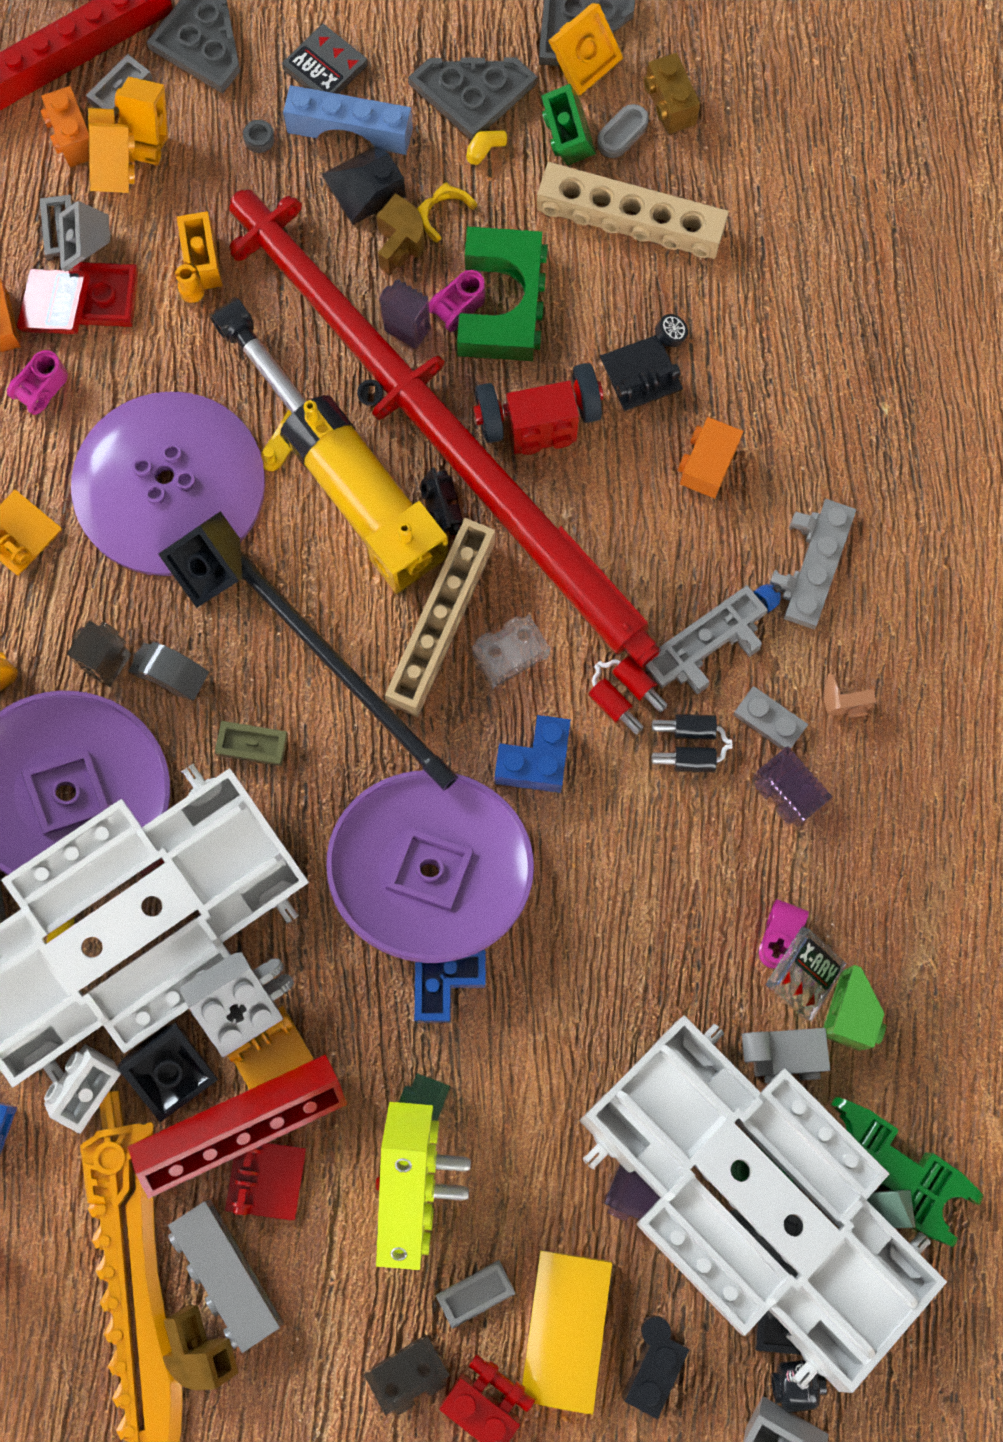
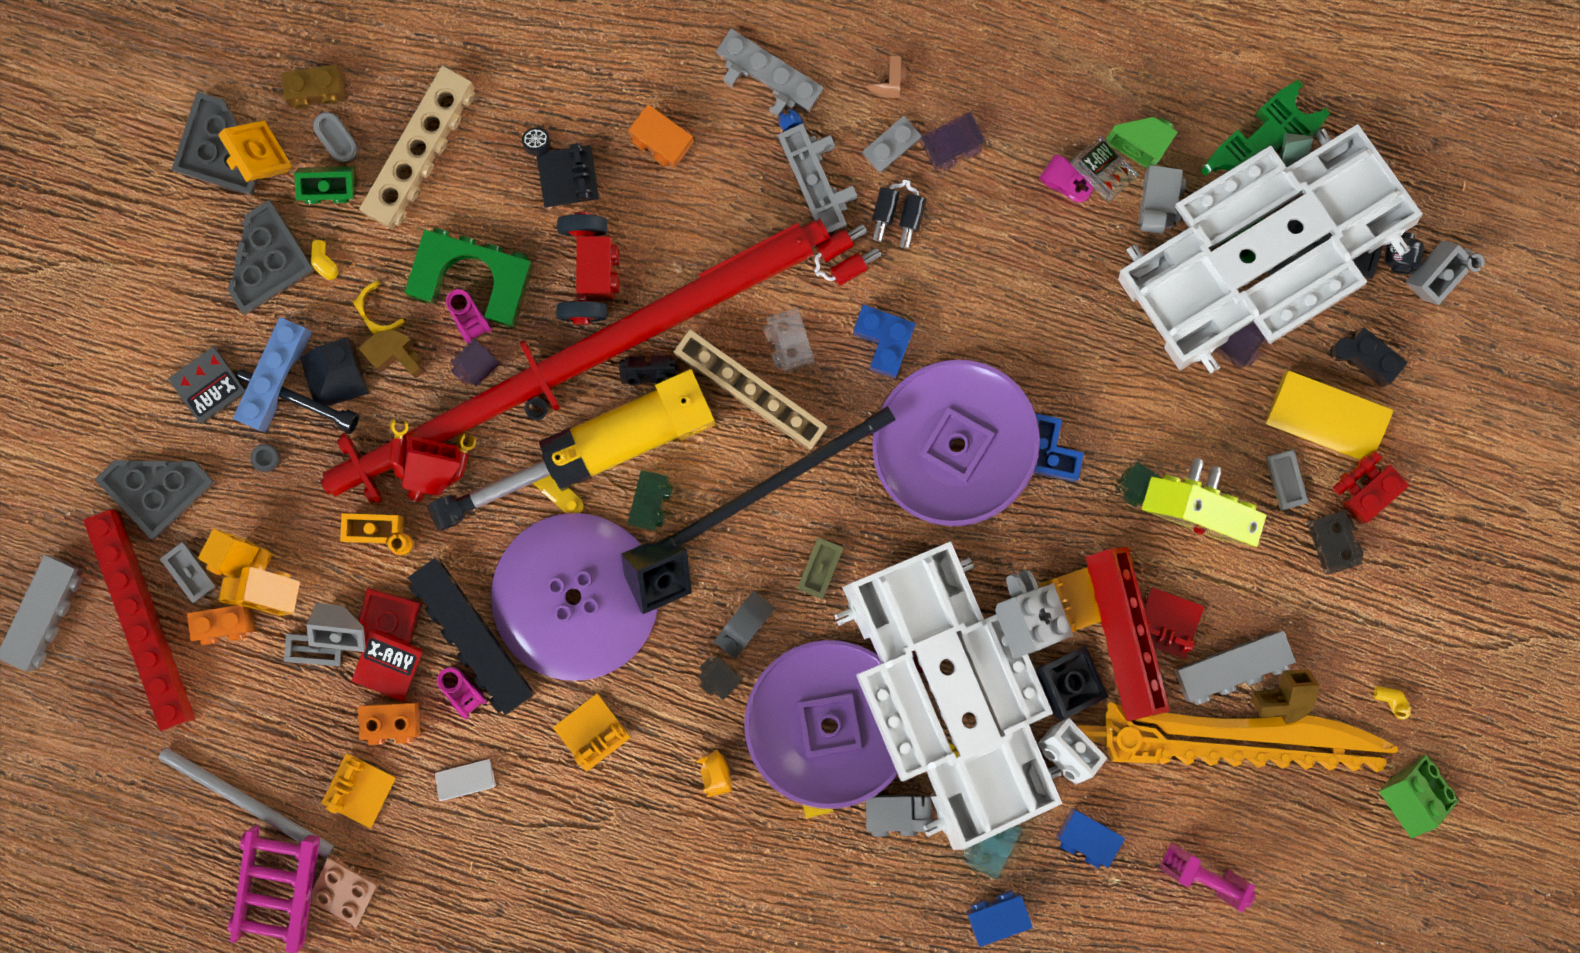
camera: 75 degrees left, 10 degrees up
(100, 380) = (471, 636): none -> black brick
(281, 289) = (427, 464): none -> red torso
(290, 534) = (649, 500): none -> clear green brick
(315, 201) = (346, 420): none -> black piece

